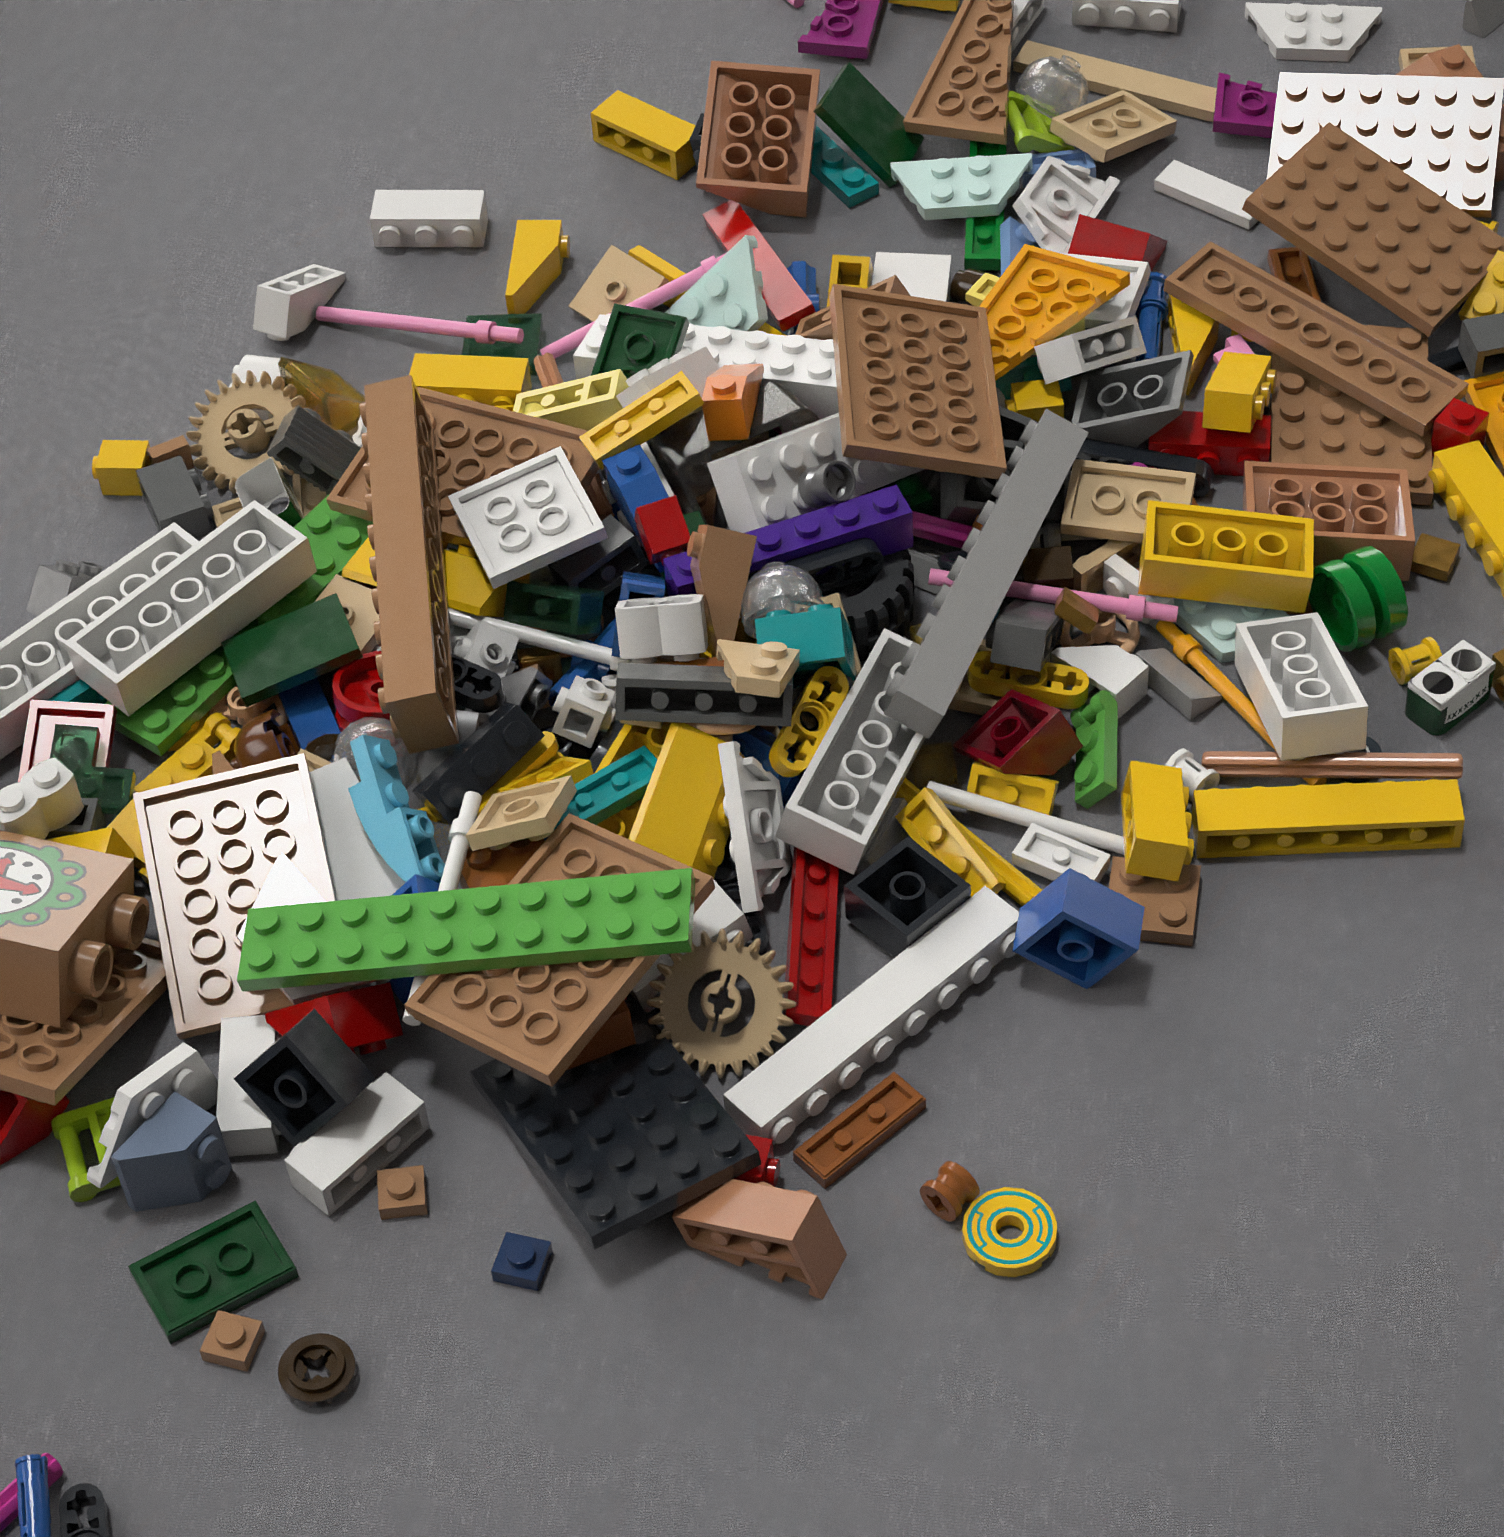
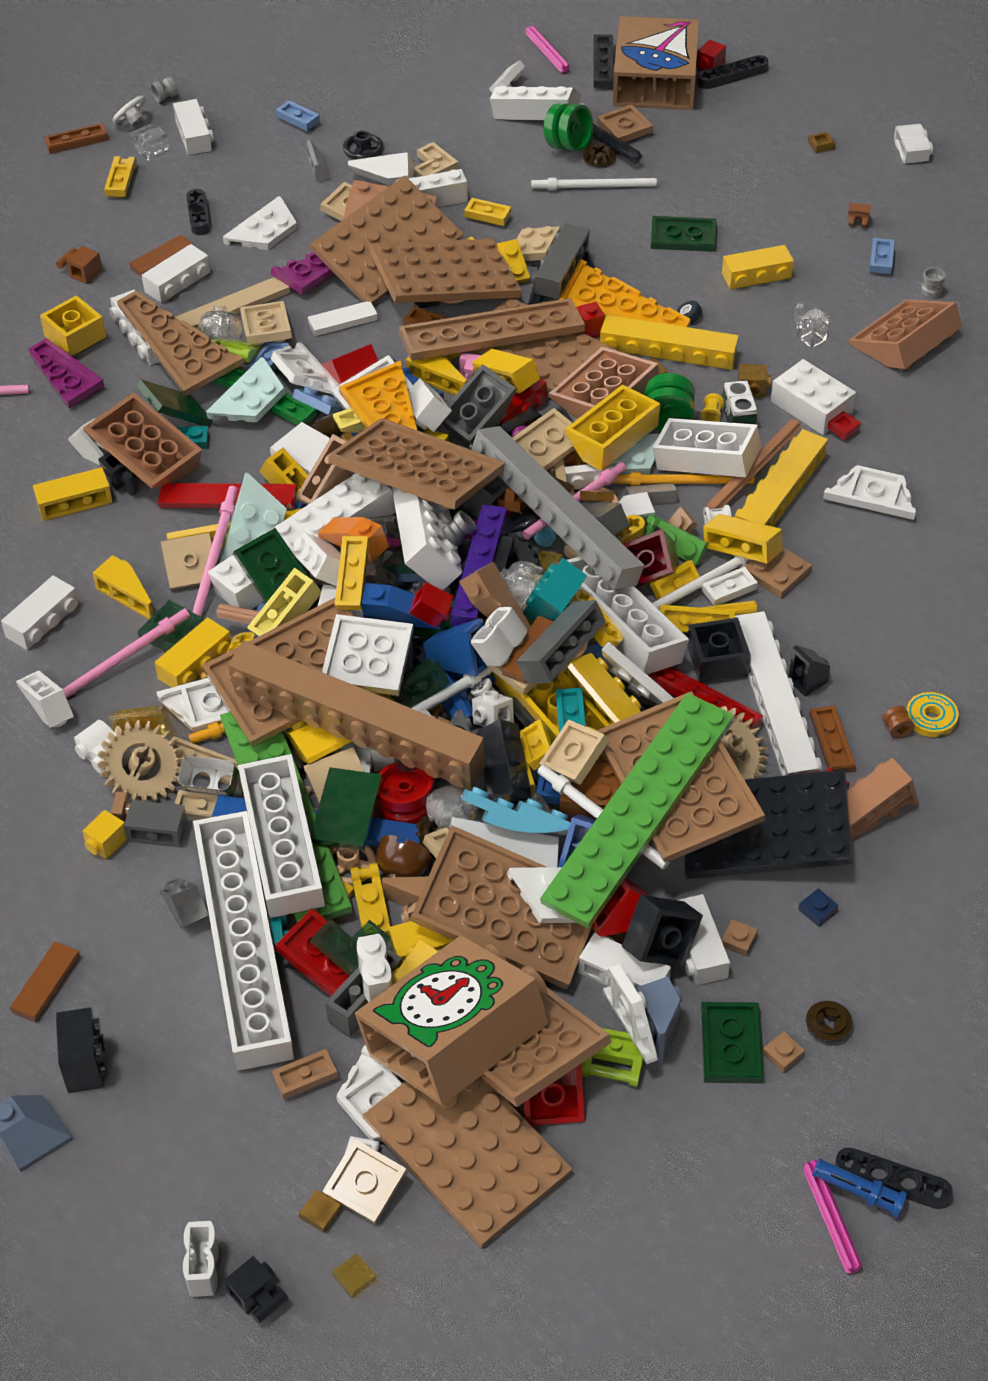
camera: 60 degrees left, 0 degrees up
(313, 448) = (196, 734): dark grey brick -> none
(758, 667) = (574, 606): tan wing -> none
(958, 1025) = (808, 670): none -> black slope
(1078, 928) = (794, 593): blue brick -> none
(1137, 740) = (683, 520): none -> medium nougat plate
(1424, 938) = (873, 491): none -> white wing

